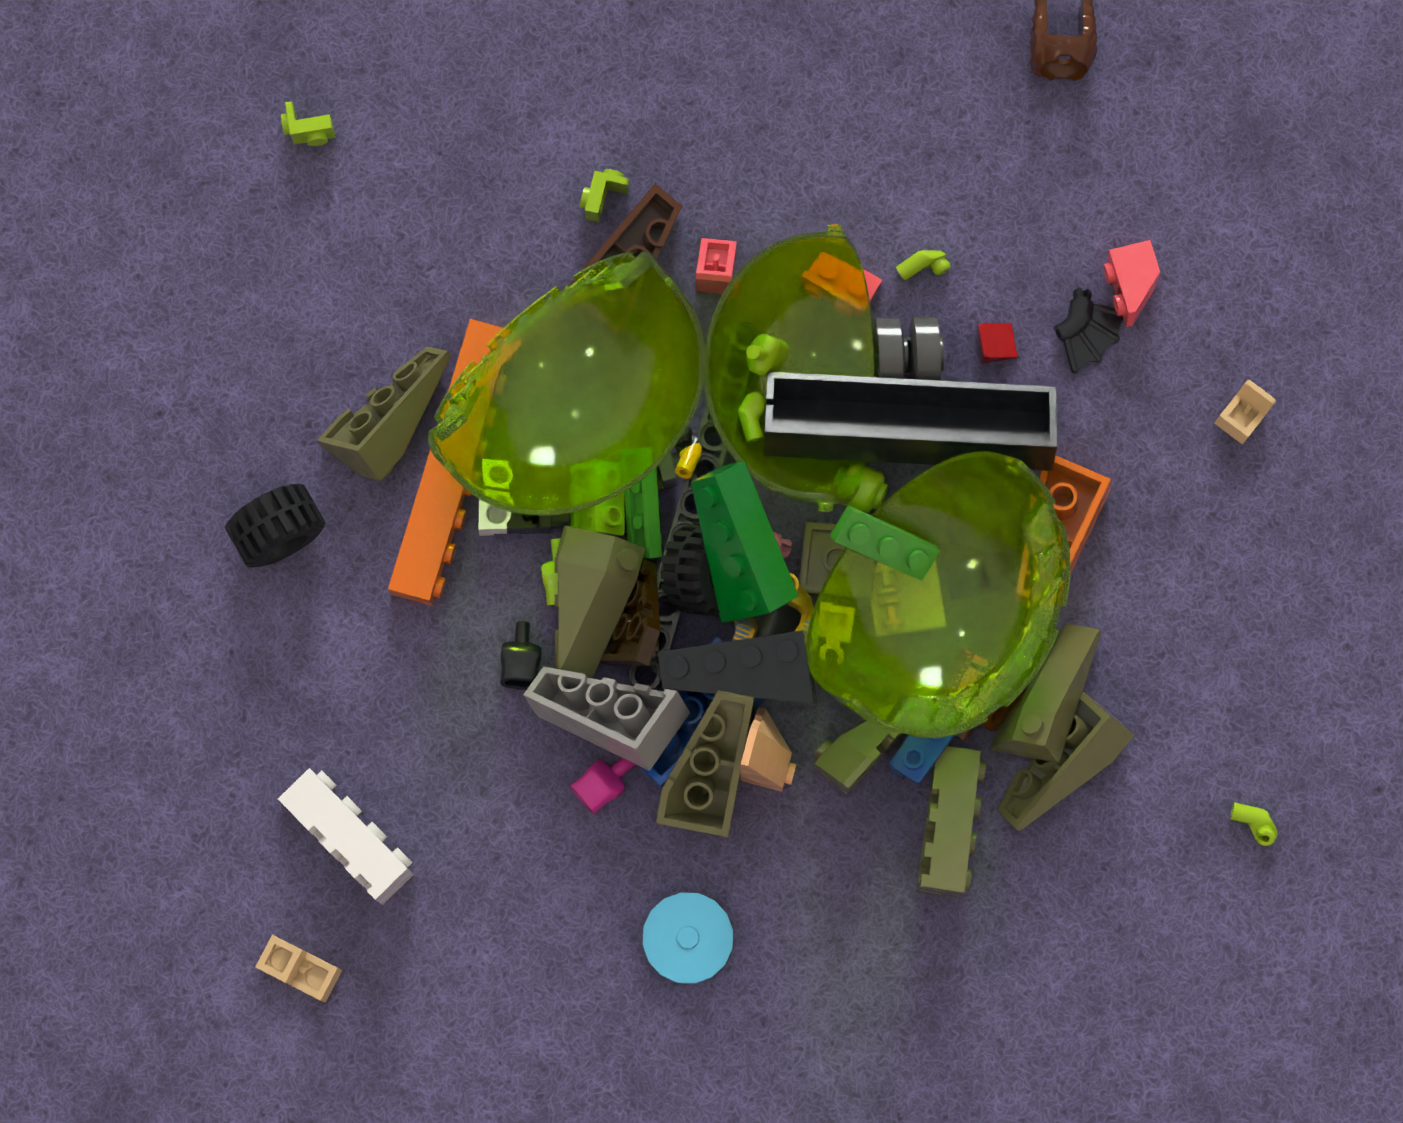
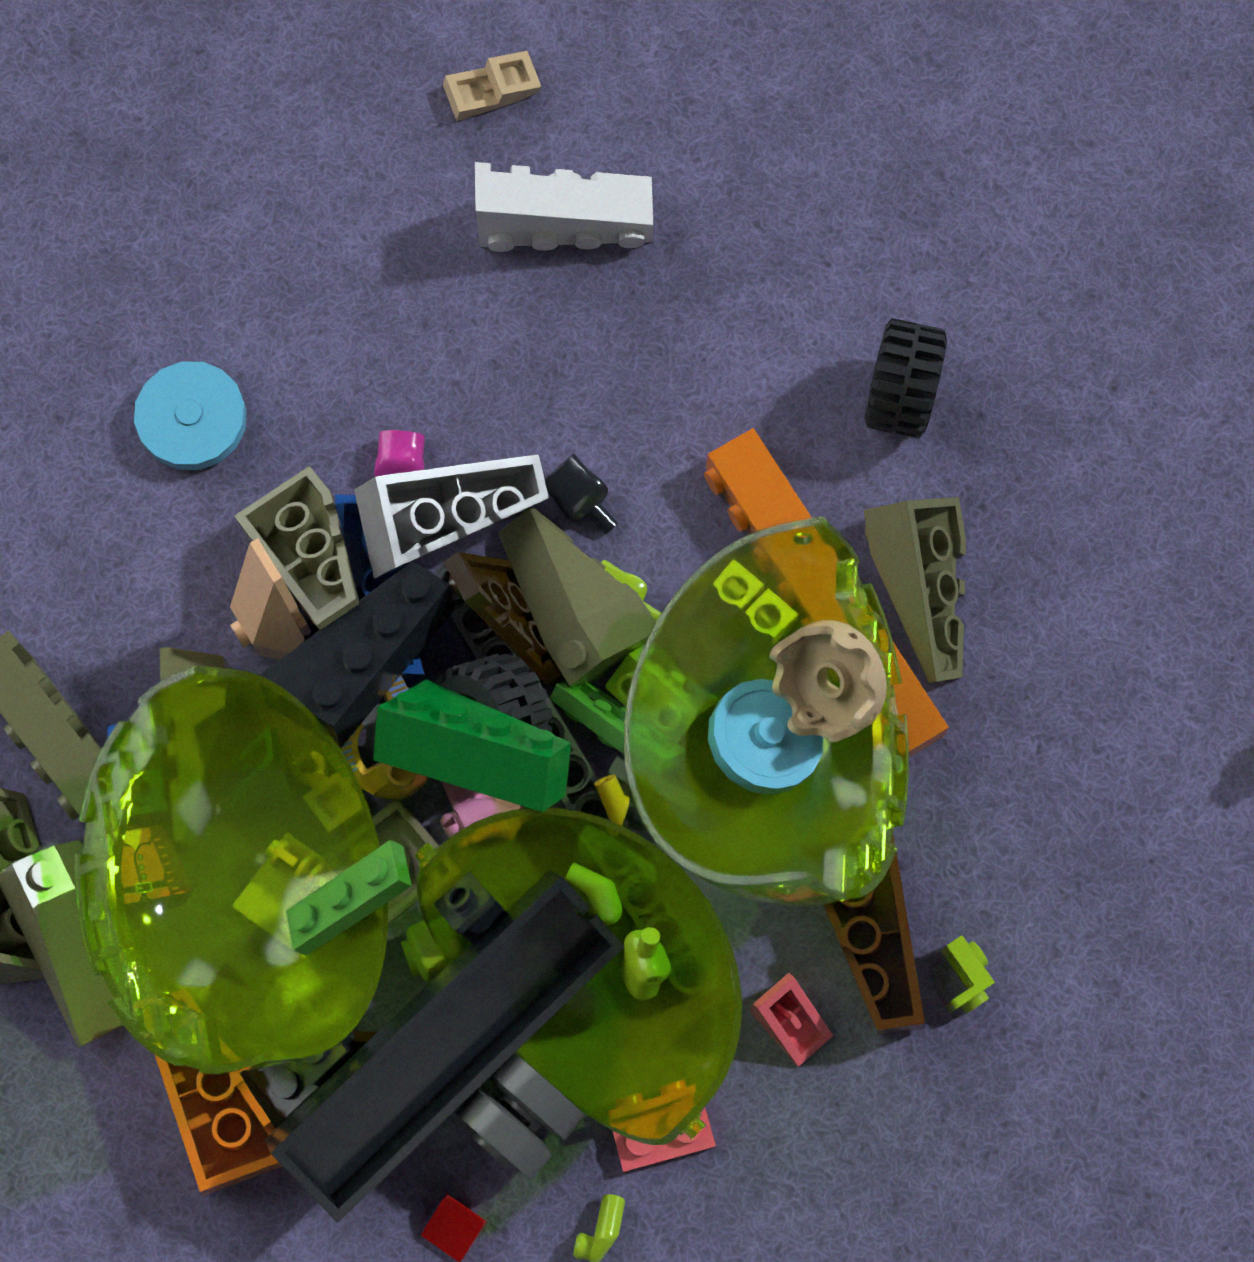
camera: 130 degrees right, 5 degrees down
(528, 391) = (803, 680): none -> tan plate
(573, 409) = (754, 742): none -> medium azure wheel
(827, 471) = (469, 907): none -> black bracket

